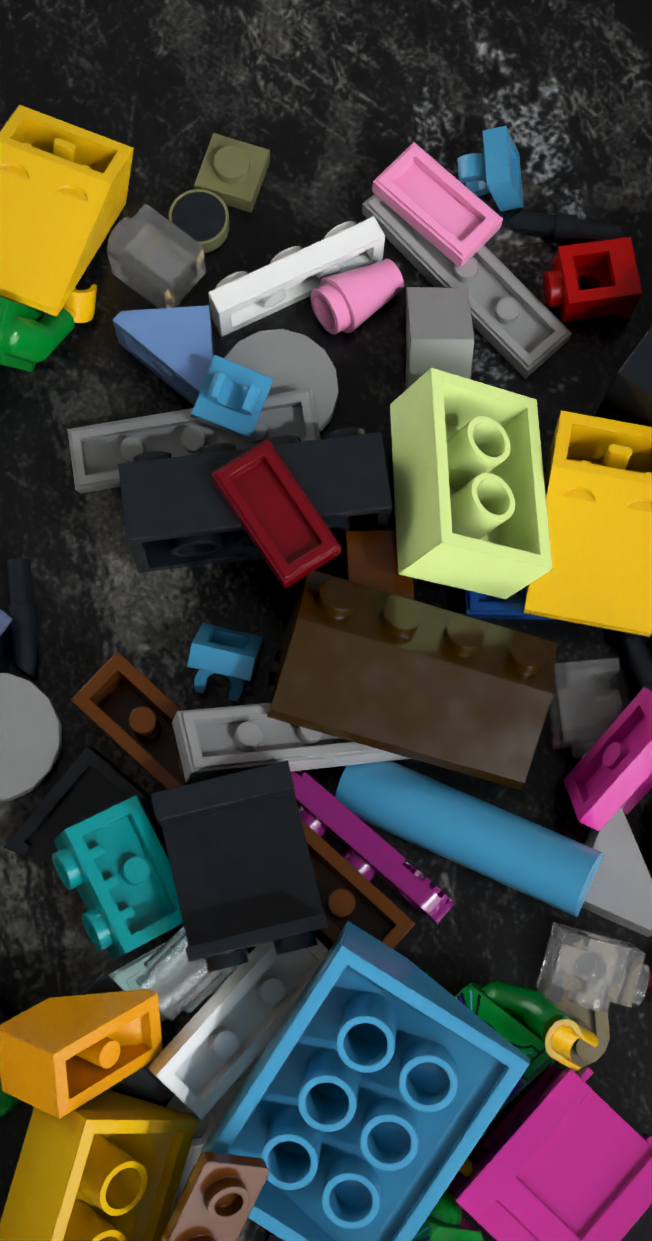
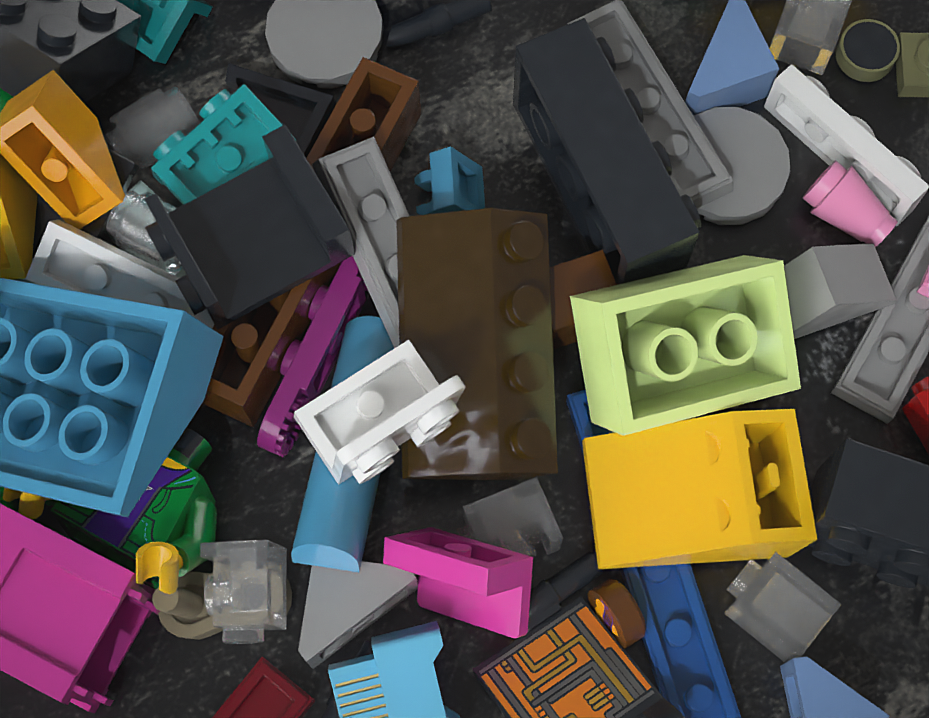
camera: 80 degrees right, 5 degrees down
(55, 946) = (149, 123): none -> clear brick
(231, 397) = (694, 110): dark azure tile -> none
(276, 513) = (582, 158): dark red tile -> none
(485, 784) = (375, 411): none -> white bracket

